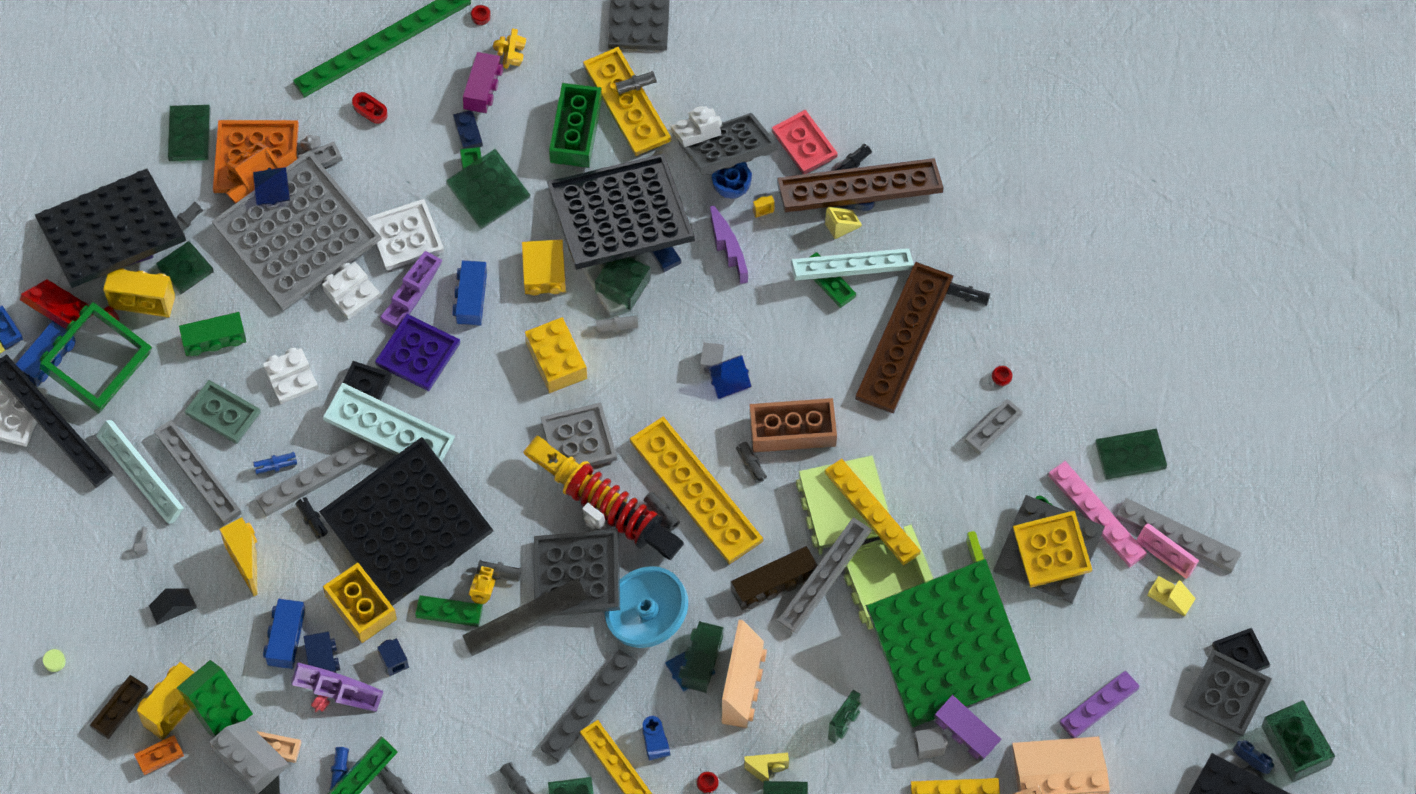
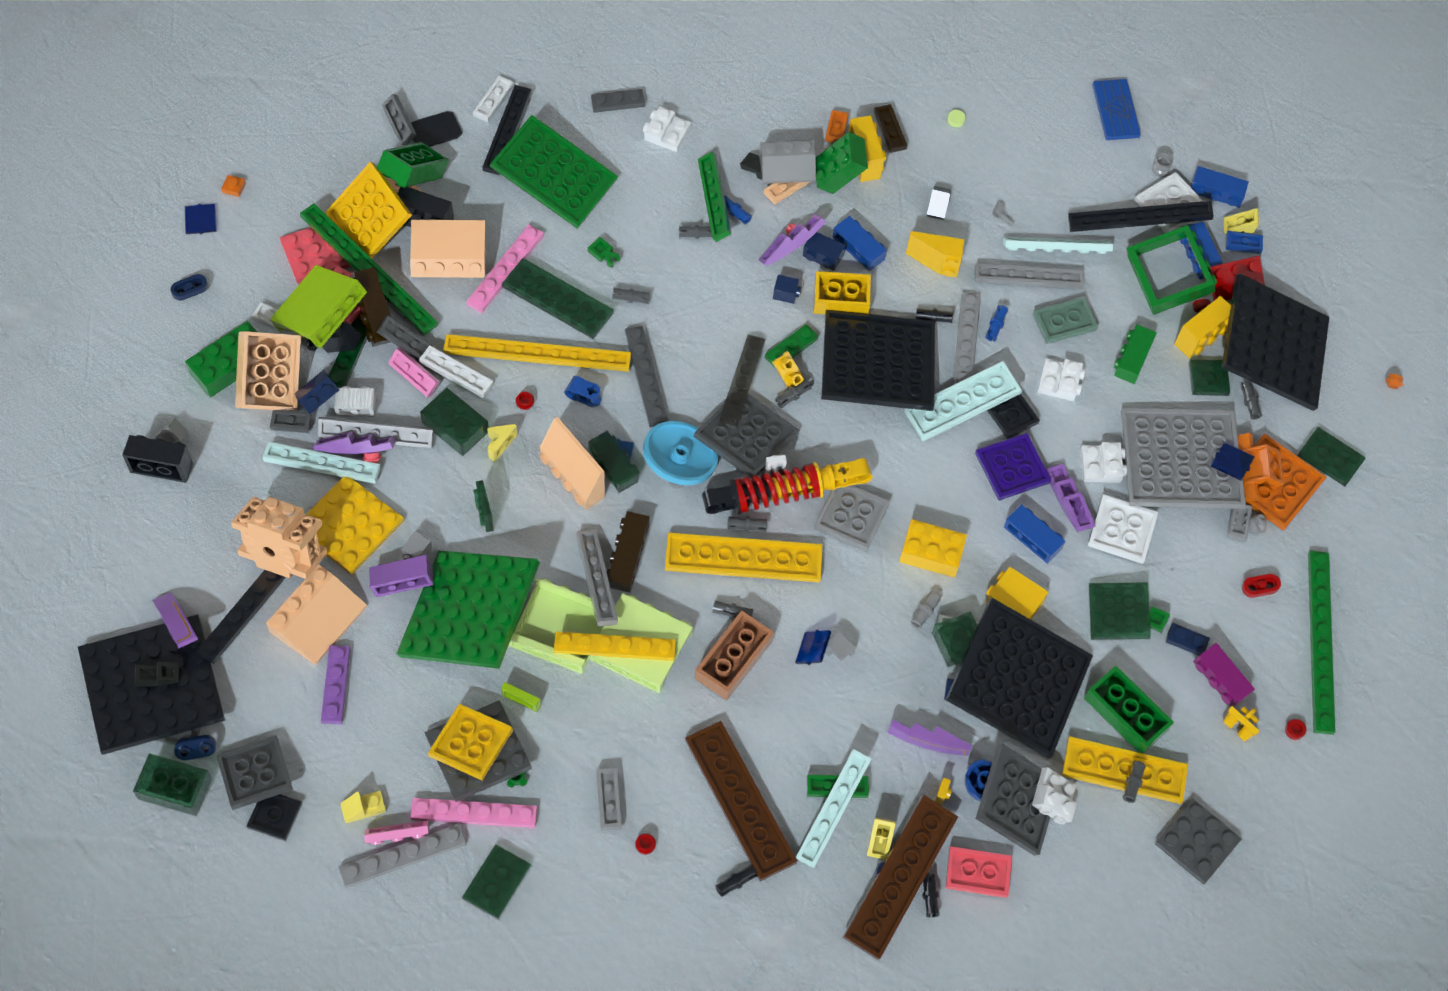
camera: 125 degrees right, 0 degrees up
(66, 129) = (1394, 381): none -> orange plate

